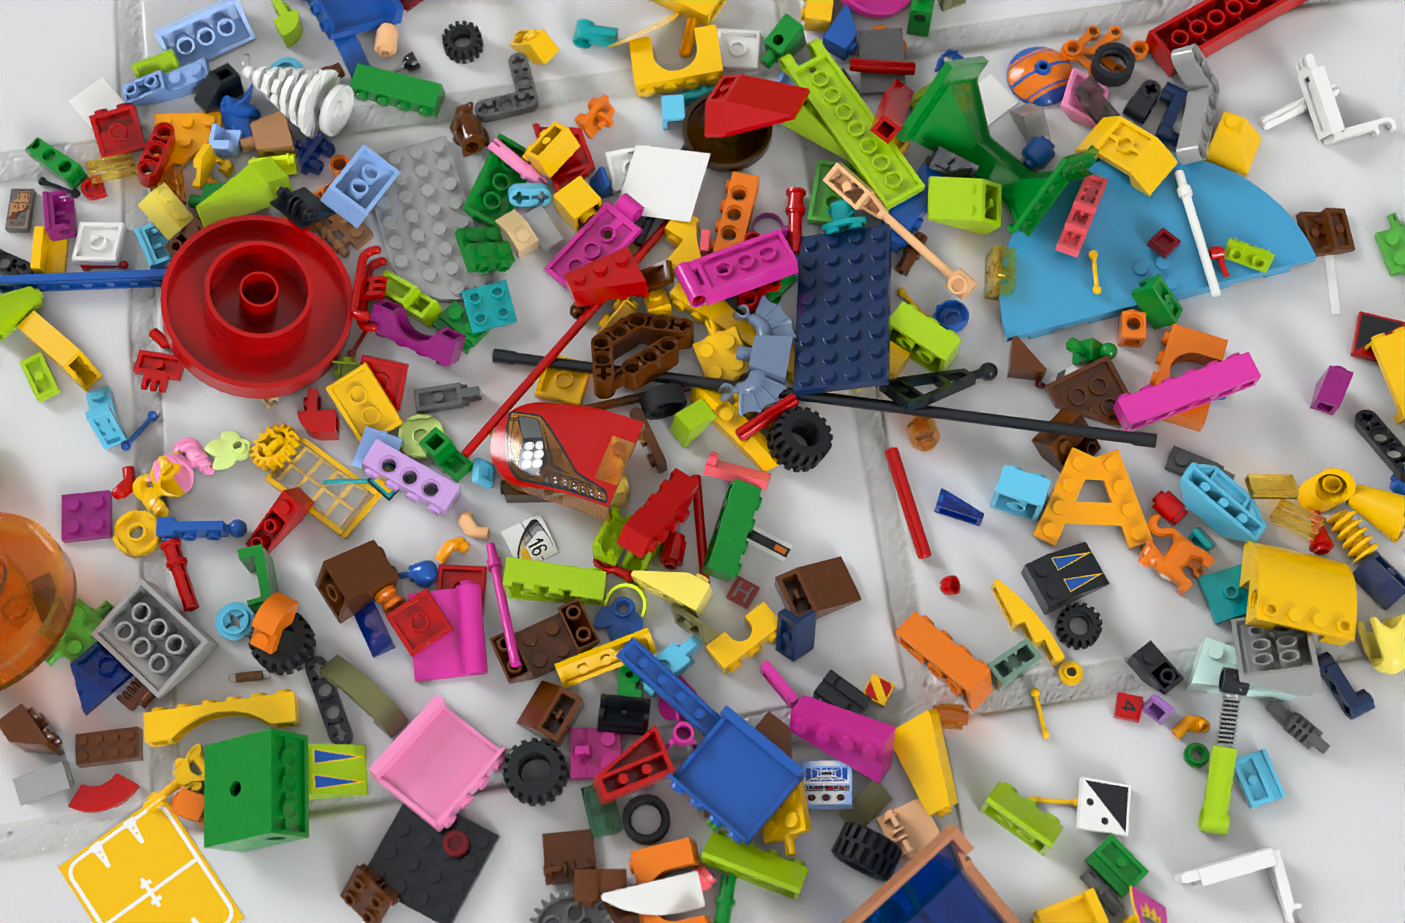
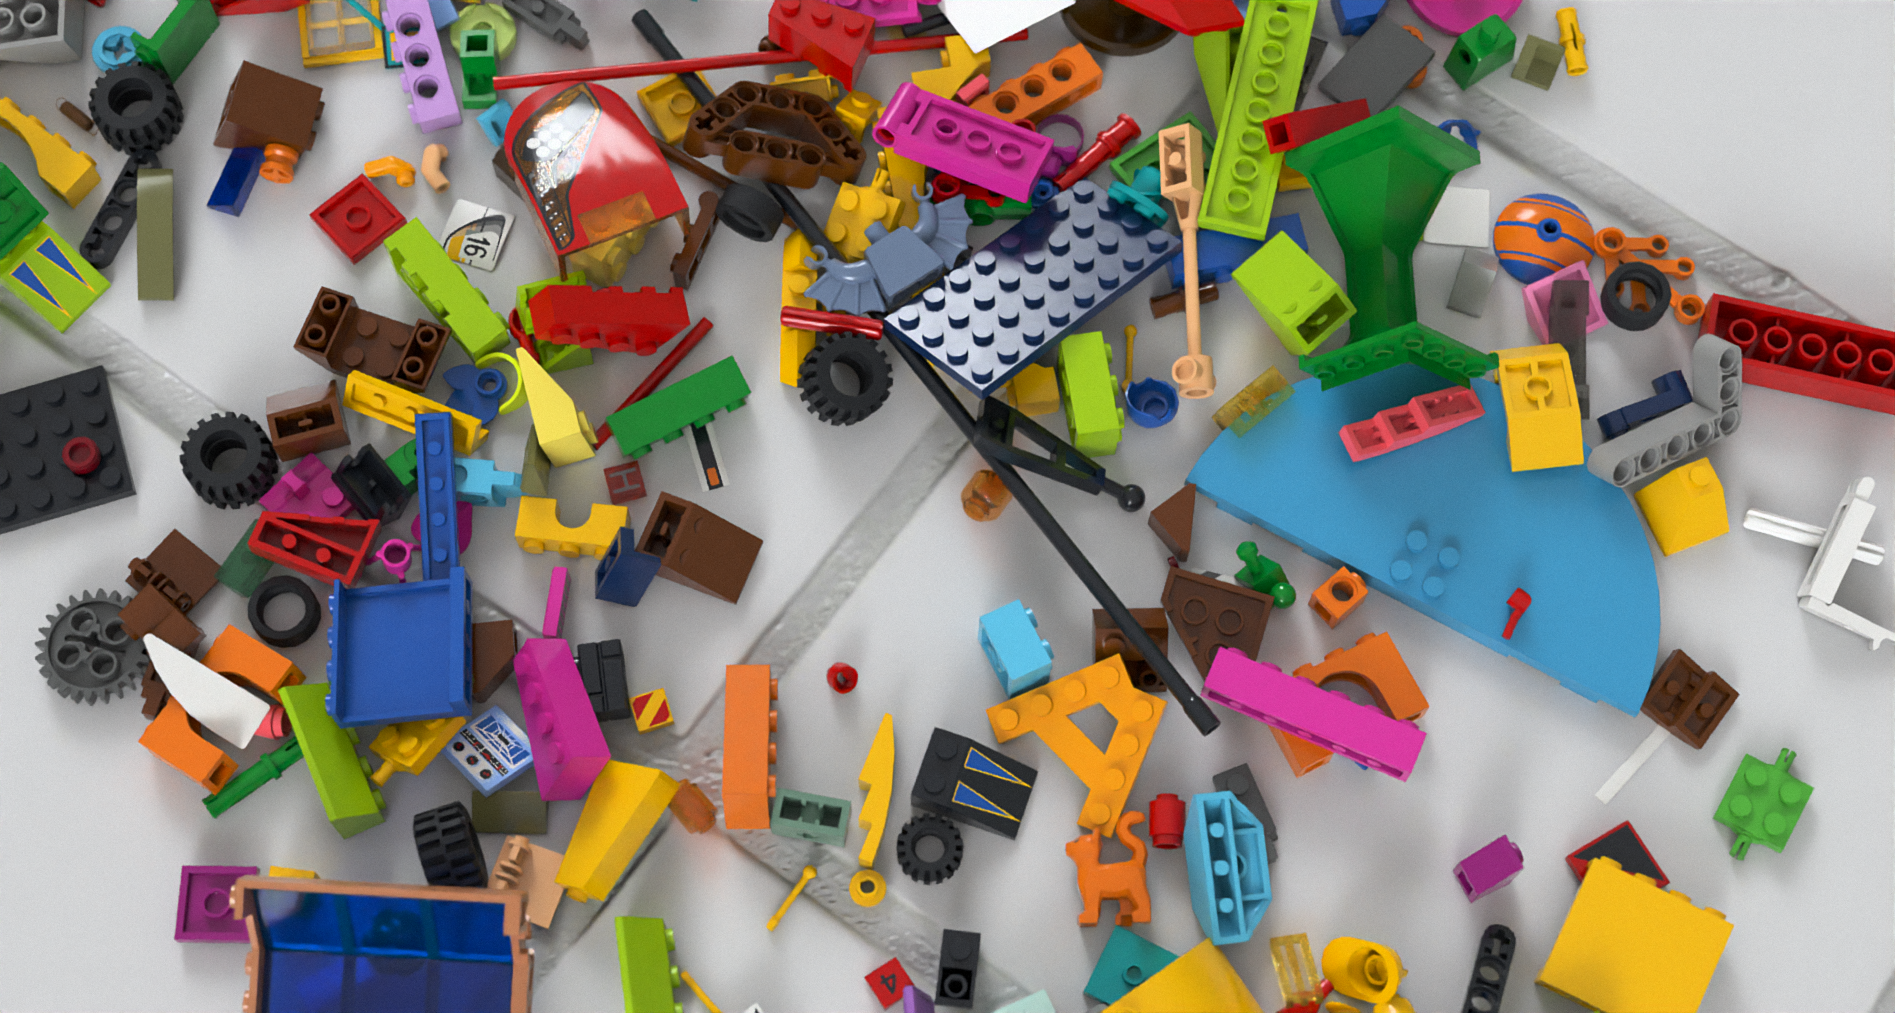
camera: 40 degrees right, 0 degrees up
(270, 620) = (137, 68): orange brick -> none
(419, 622) = (279, 210): red tile -> none
(422, 573) = (336, 166): blue piece -> none
(437, 764) = (148, 362): bright pink panel -> none
(464, 648) = (297, 246): dark pink door -> none
(495, 566) = (363, 274): dark pink bar -> none
(658, 275) = (881, 79): reddish brown tile -> none
(673, 551) = (599, 373): red brick -> none
(691, 421) = (758, 260): lime slope -> none
(730, 471) = (747, 354): coral hinge -> none
(882, 66) = (1366, 72): red axle -> none
(907, 503) = (892, 553): red axle -> none
(950, 163) = (1323, 241): black hinge -> none
(956, 508) = (932, 598): clear blue slope -> none
(1038, 153) = (1445, 315): blue head -> none
(1093, 256) = (1376, 478): yellow hinge -> none
(1143, 102) = (1627, 368): black piece -> none
(1157, 301) = (1394, 592): green hinge -> none
(1163, 243) = (1471, 536): dark red tile -> none
(1185, 193) = (1557, 506): white bar -> none
(1201, 539) = (1167, 891): teal slope -> none
(1247, 255) = (1549, 625): lime hinge -> none
(1271, 486) = (1306, 908): clear yellow tile -> none

